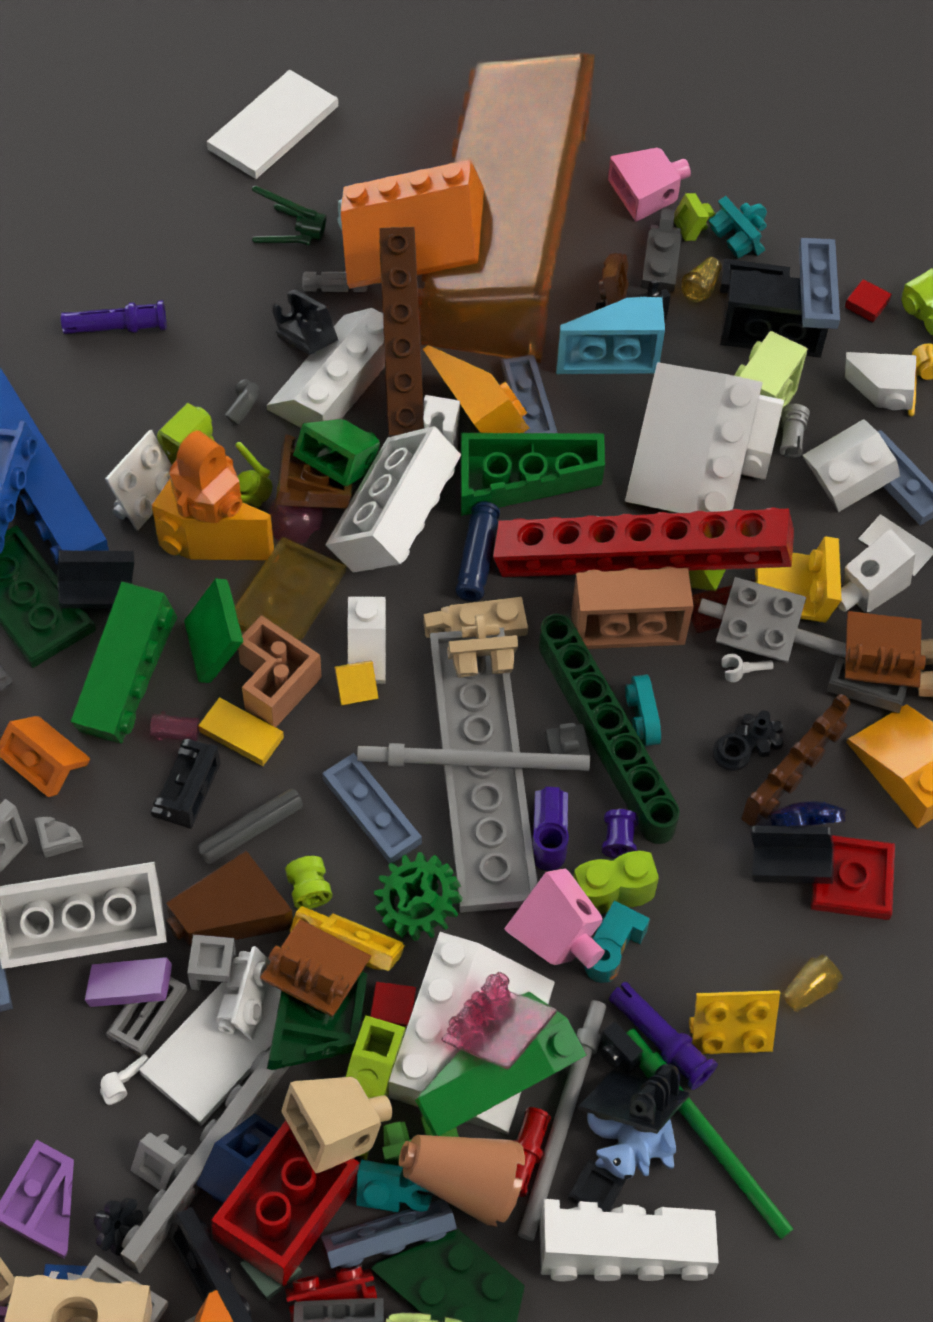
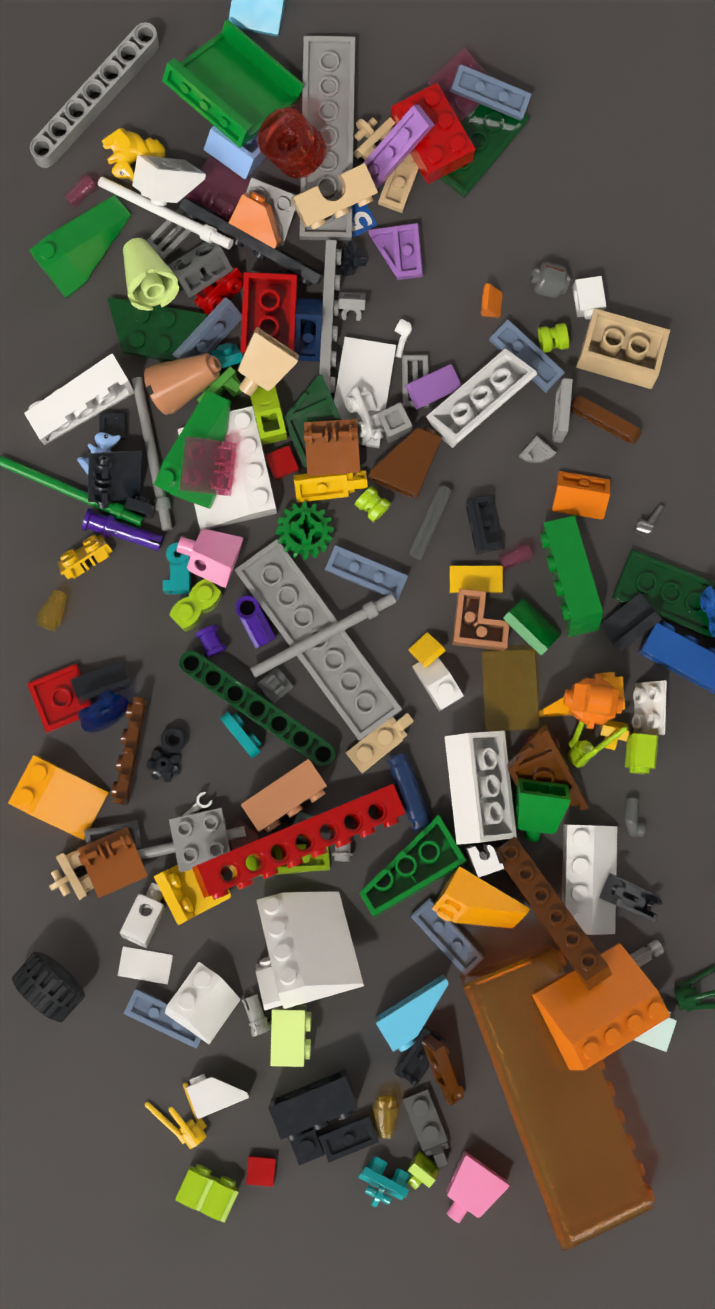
camera: 150 degrees right, 25 degrees up
(498, 648) = (362, 711): tan hips -> none
(531, 1138) = (162, 426): red pin -> none
(819, 283) = (288, 1125): sand blue plate -> none

